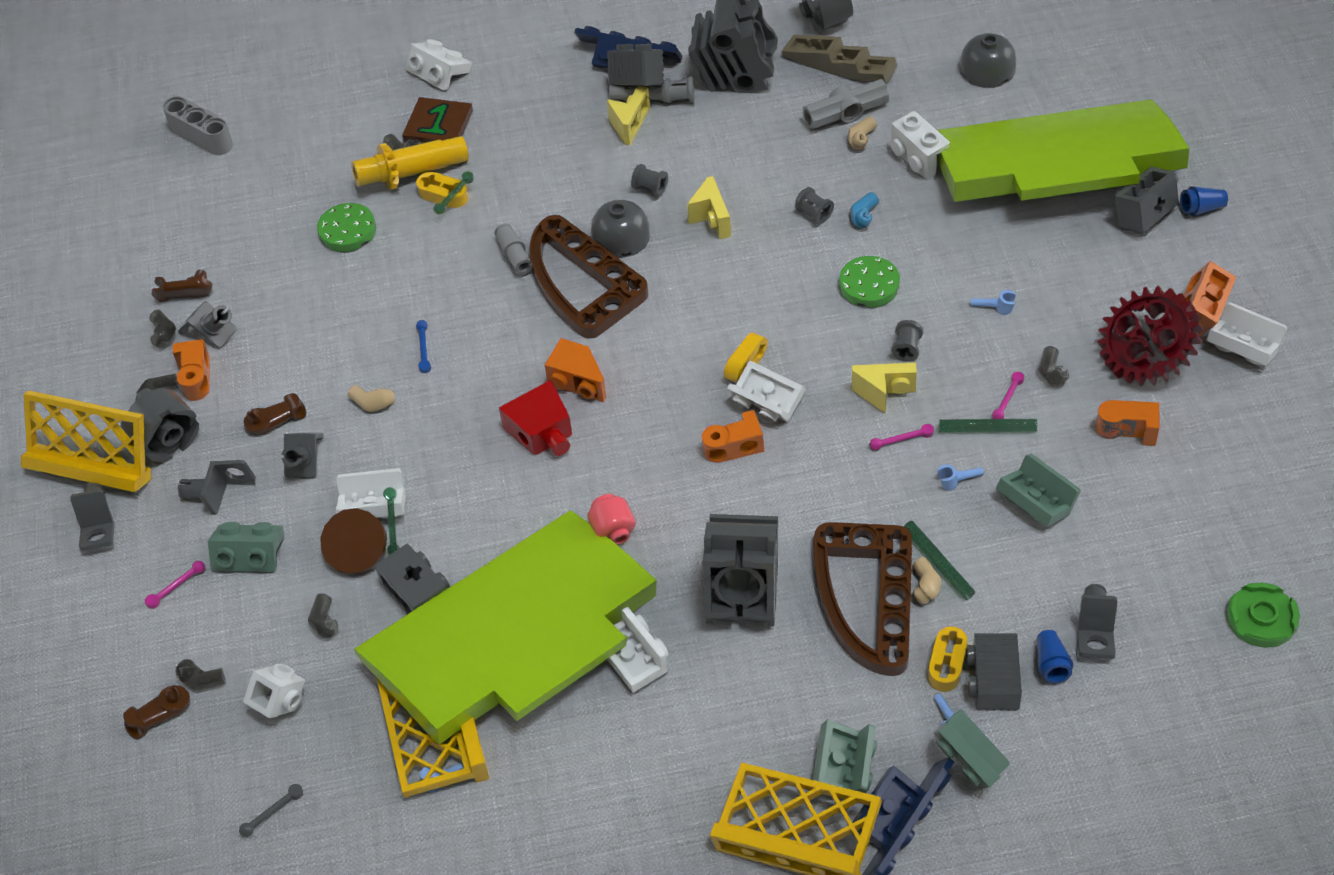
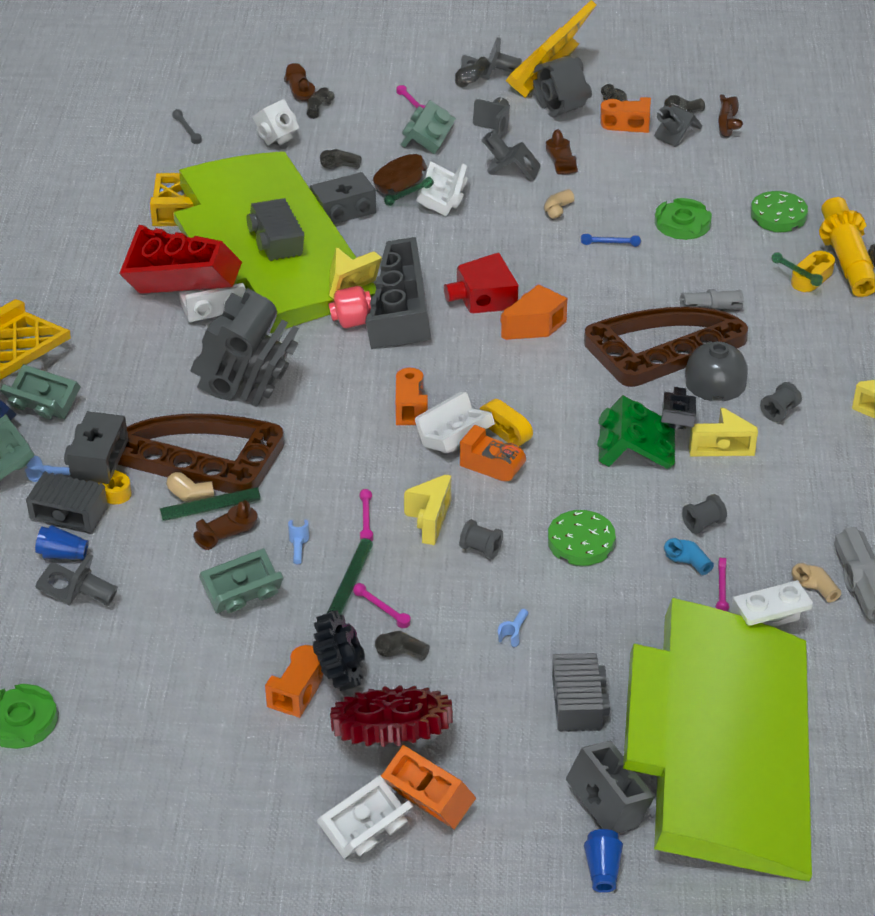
camera: 100 degrees right, 10 degrees down
(122, 527) = (471, 73): none -> clear smoke arm
(373, 297) = (683, 219): none -> bright green tile
(529, 595) = (276, 229): none -> dark grey brick
(572, 522) = (352, 272): none -> light yellow slope
(582, 474) = (399, 302): none -> dark grey wedge
(611, 679) = (177, 262): none -> red wedge
(694, 233) = (678, 409): none -> black hinge
(732, 268) = (634, 427): none -> green bracket
(796, 355) = (490, 455): none -> orange leg
(911, 183) = (722, 604): none -> dark pink hinge
(926, 656) = (97, 447): none -> dark grey brick
(953, 530) = (236, 521): none -> reddish brown piece
(1052, 242) = (578, 691): none -> dark grey brick
(1101, 385) = (338, 650): none -> black gear

